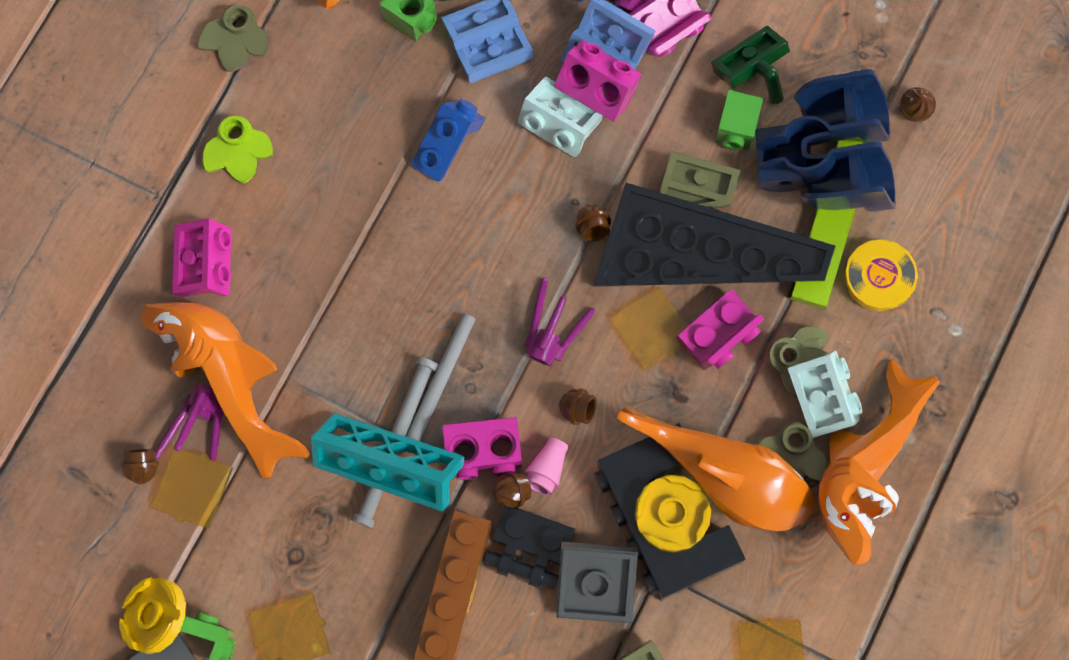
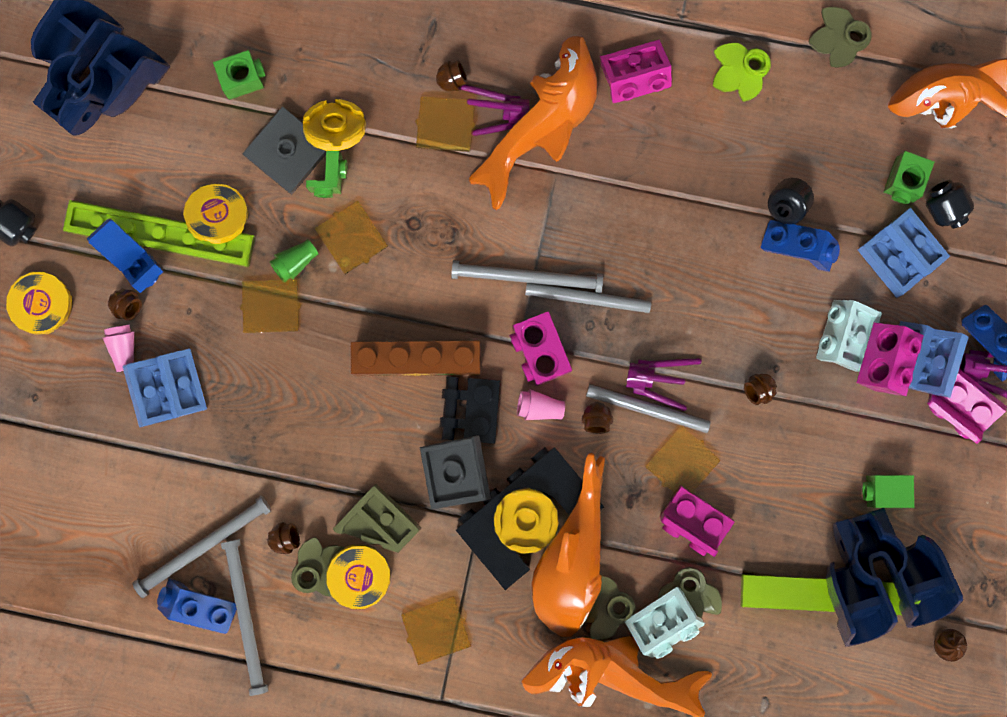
camera: 70 degrees right, 10 degrees up
(379, 465) = (501, 267): teal fence -> none
(397, 134) = (790, 201): none -> black head
(512, 489) = (512, 383): reddish brown plate -> none
(581, 349) = (648, 408): none -> light grey bar
(686, 243) = (763, 472): black wing -> none
(699, 181) = (817, 467): olive wing -> none
(753, 57) = (952, 490): dark green plate -> none
(880, 275) = (784, 647): yellow tile -> none

